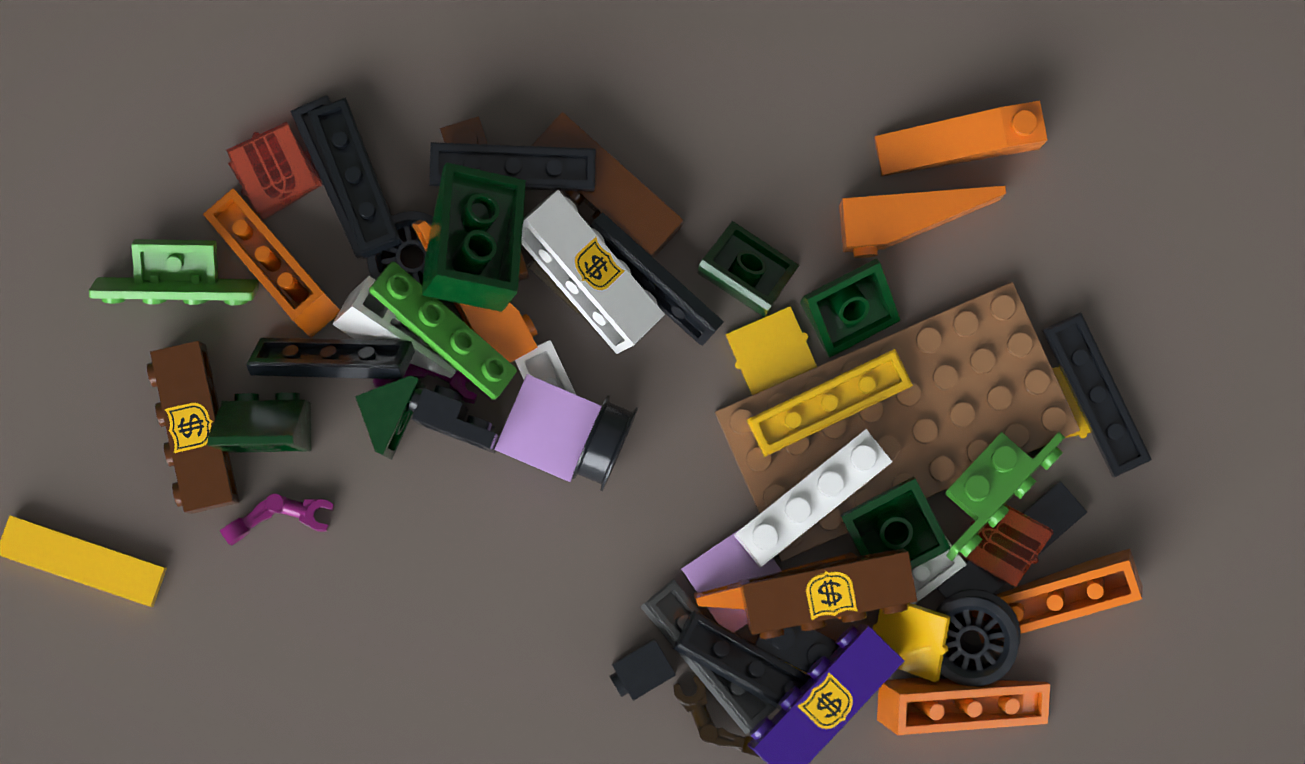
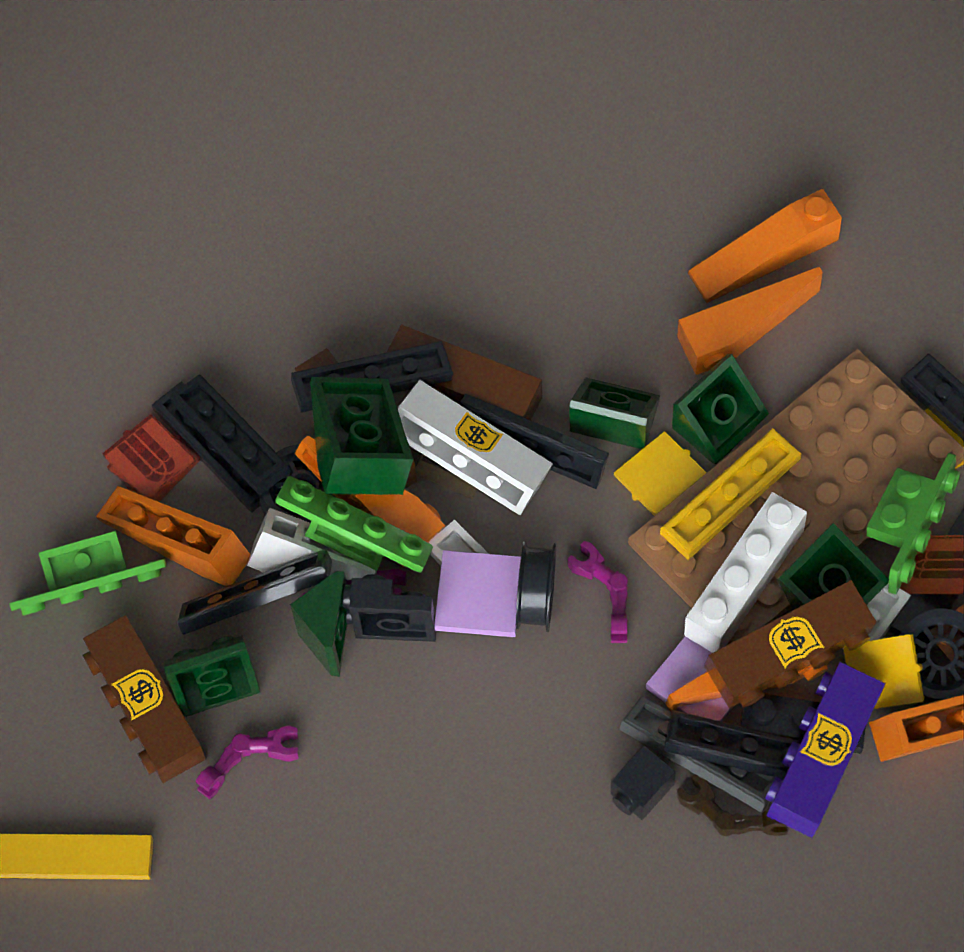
camera: 10 degrees left, 20 degrees down
(687, 452) = (615, 581): none -> magenta piece

